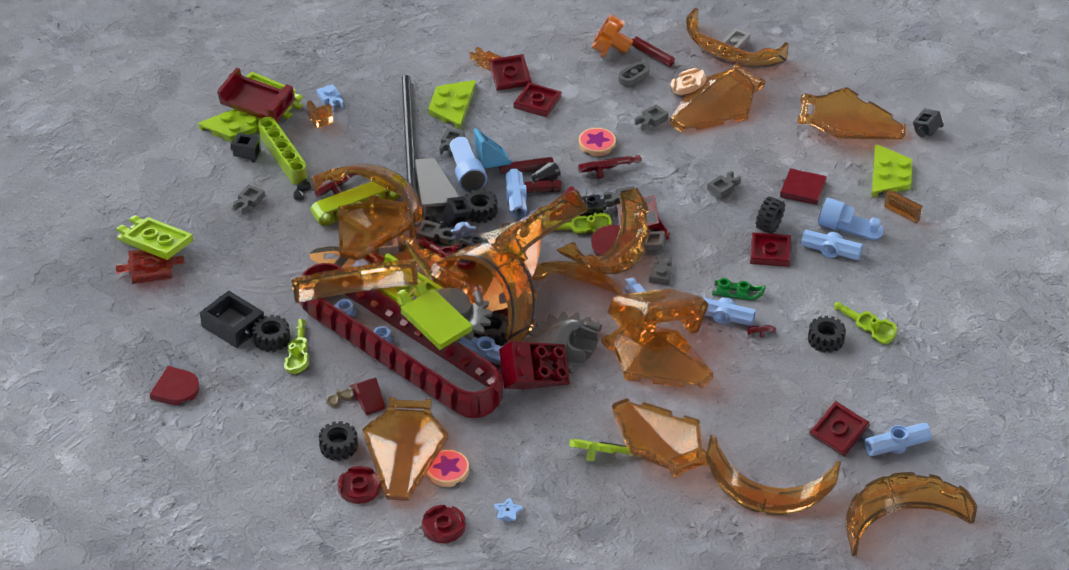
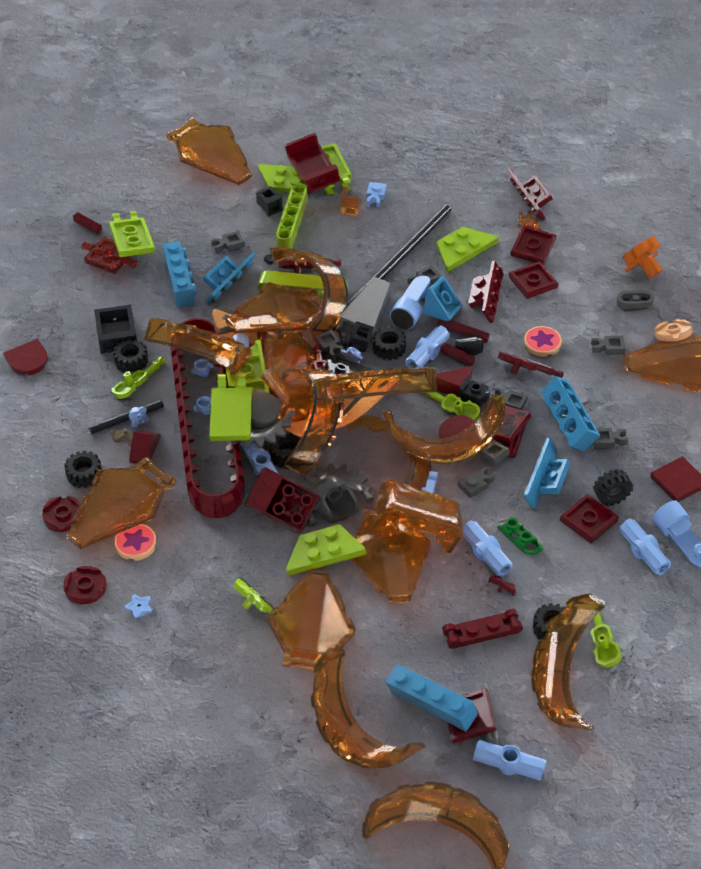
camera: 40 degrees right, 5 degrees up
(94, 250) = (87, 223): none -> dark red axle
(142, 130) = (211, 150): none -> clear orange windscreen
(237, 246) = (178, 274): none -> dark azure brick
(279, 226) = (223, 274): none -> dark azure bracket
(323, 382) = (122, 418): none -> black bar
(336, 374) = (135, 413): none -> light blue plate
(464, 30) = (534, 193): none -> bracket
(510, 128) = (486, 291): none -> dark red bracket
(606, 381) = (323, 549): none -> lime wing
(653, 51) = (674, 289): dark red axle -> none
(653, 174) = (570, 414): none -> dark azure brick
(713, 233) = (547, 475): none -> dark azure bracket
(781, 368) = (482, 629): none -> dark red plate
(805, 430) = (432, 697): none -> dark azure brick
(853, 356) = (554, 658): none -> clear orange windscreen

